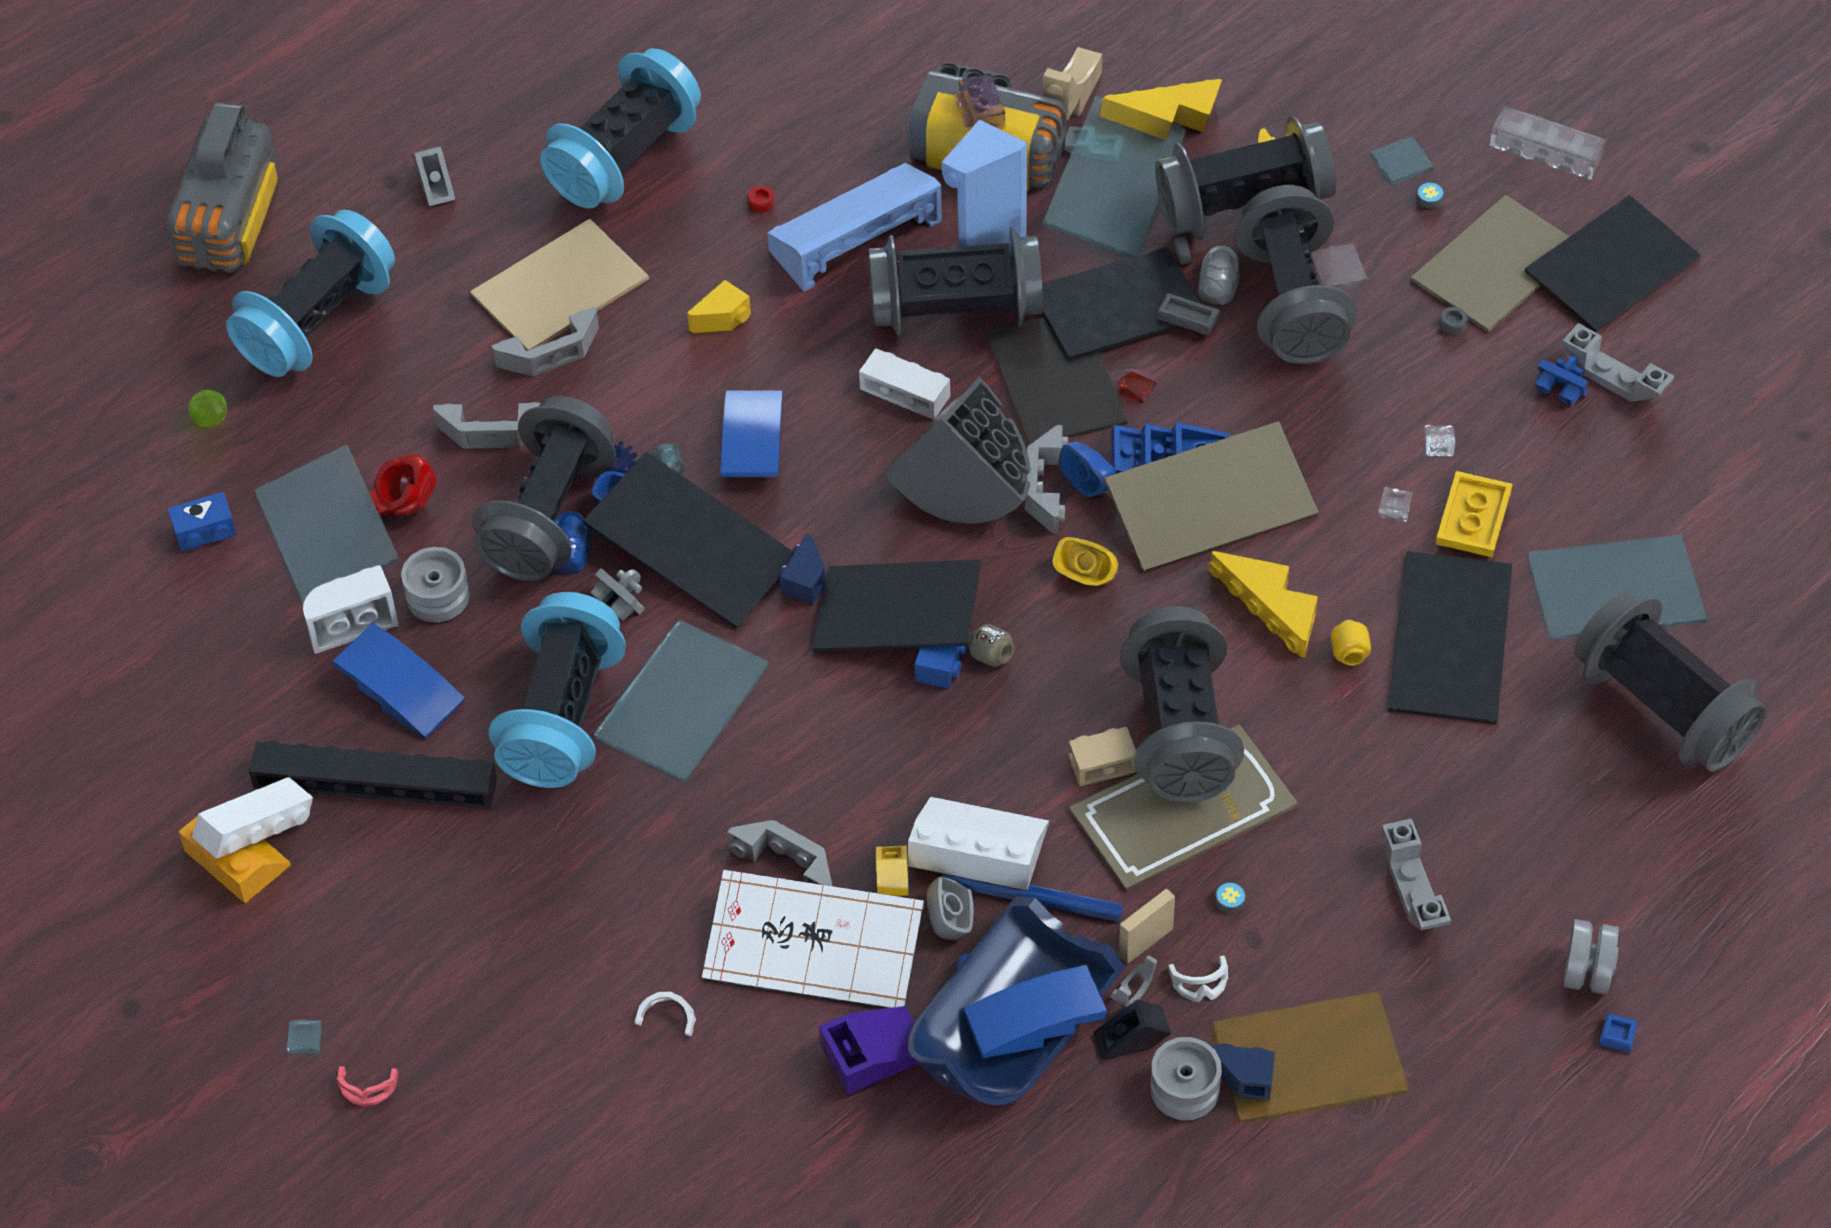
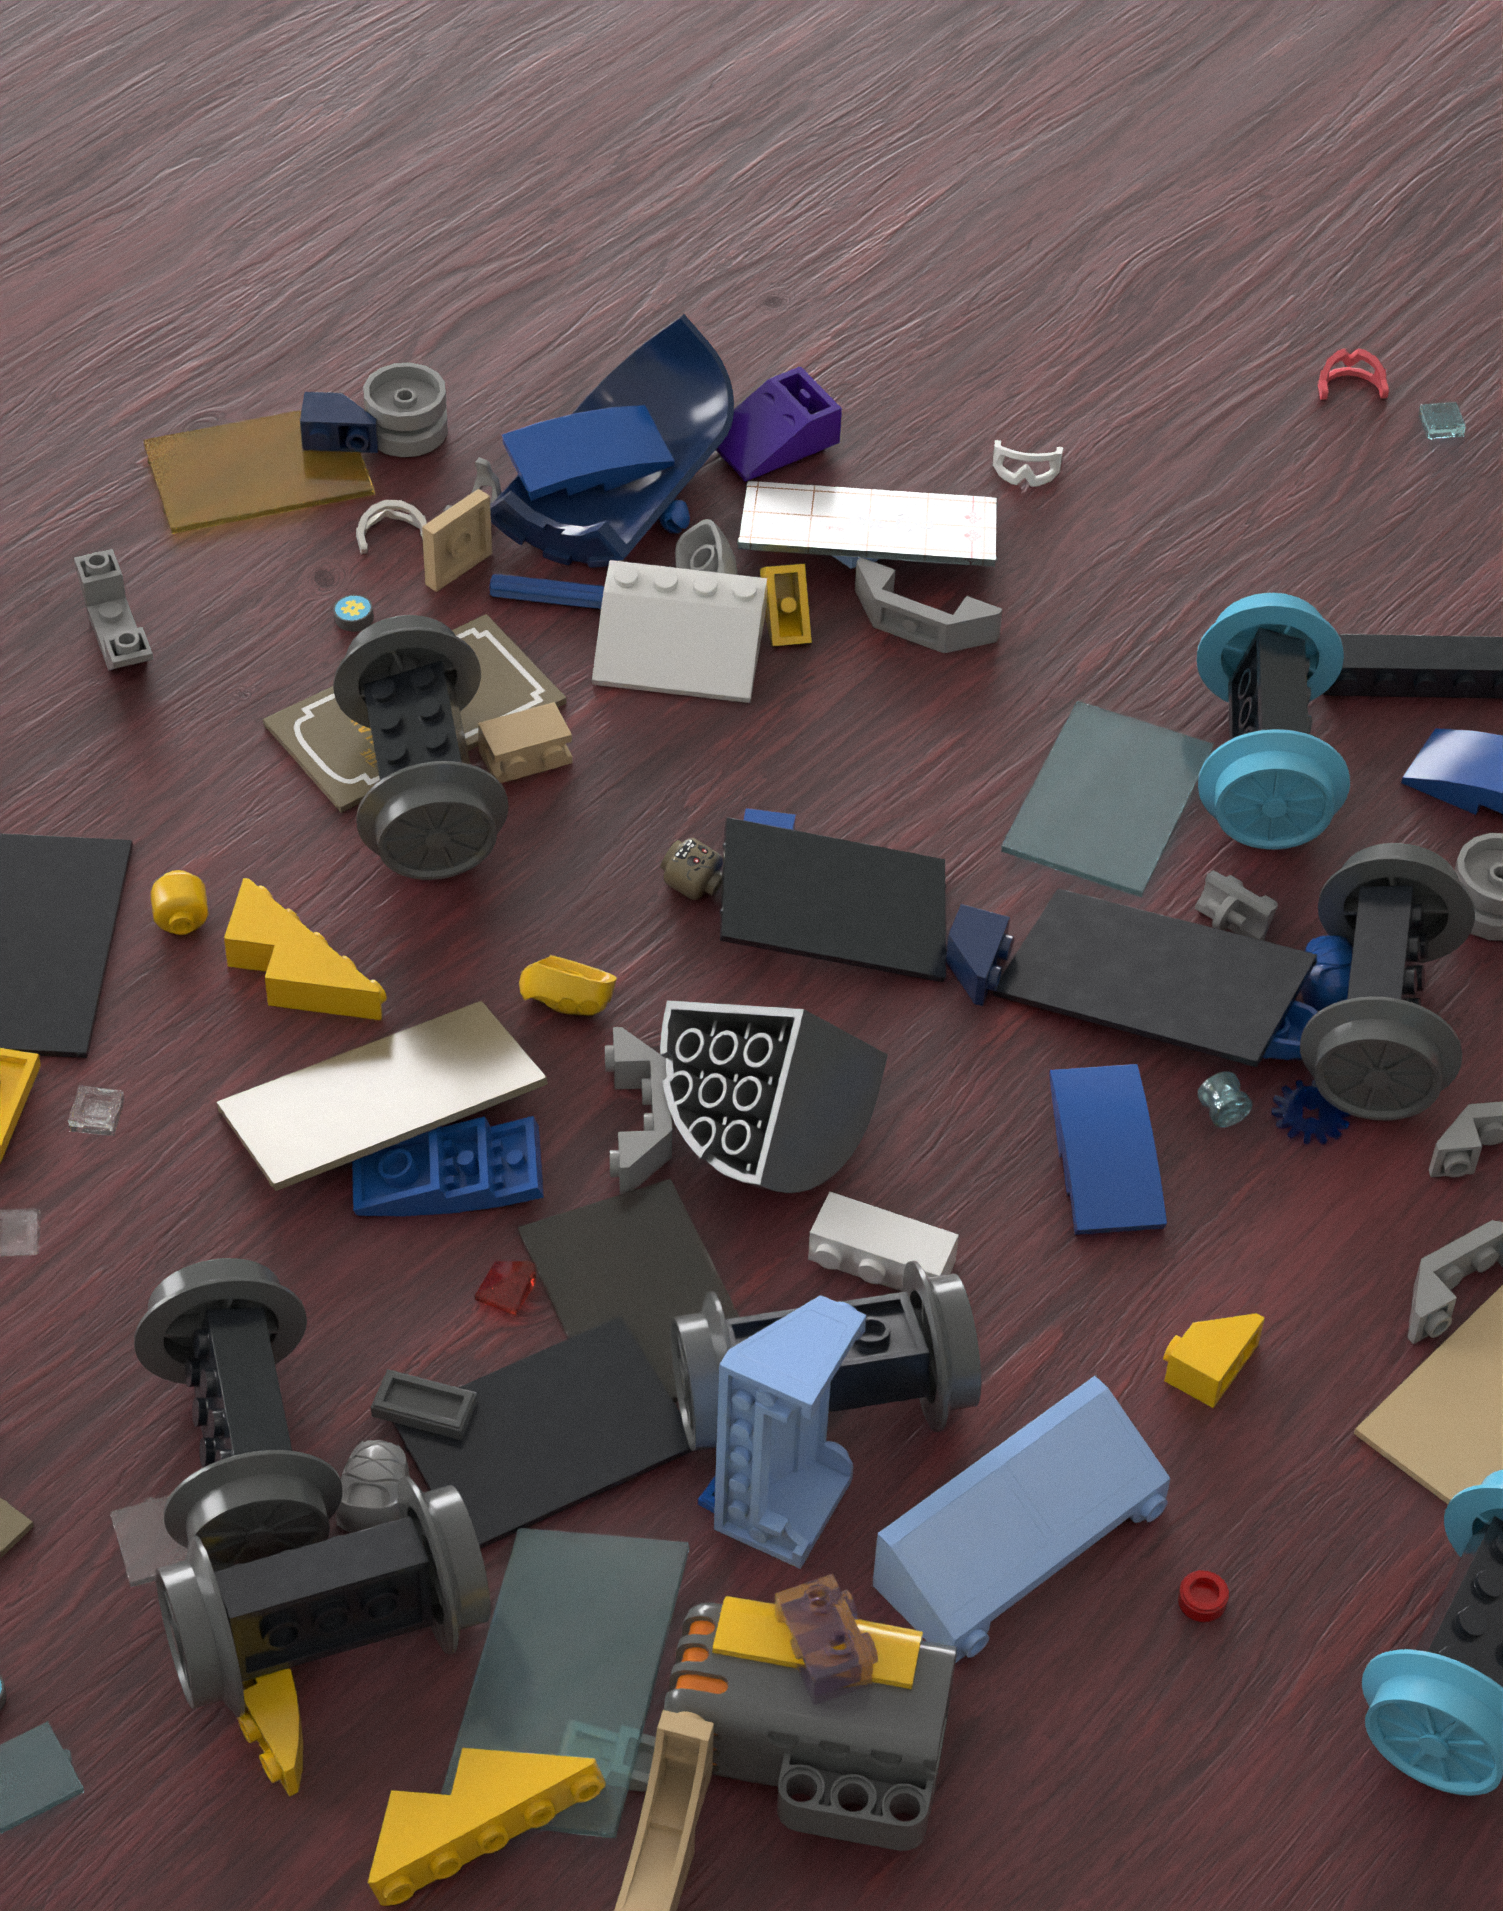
camera: 170 degrees right, 5 degrees down
(1085, 469) = (574, 1120): blue piece -> none
(1132, 1030) = (455, 454): black slope -> none

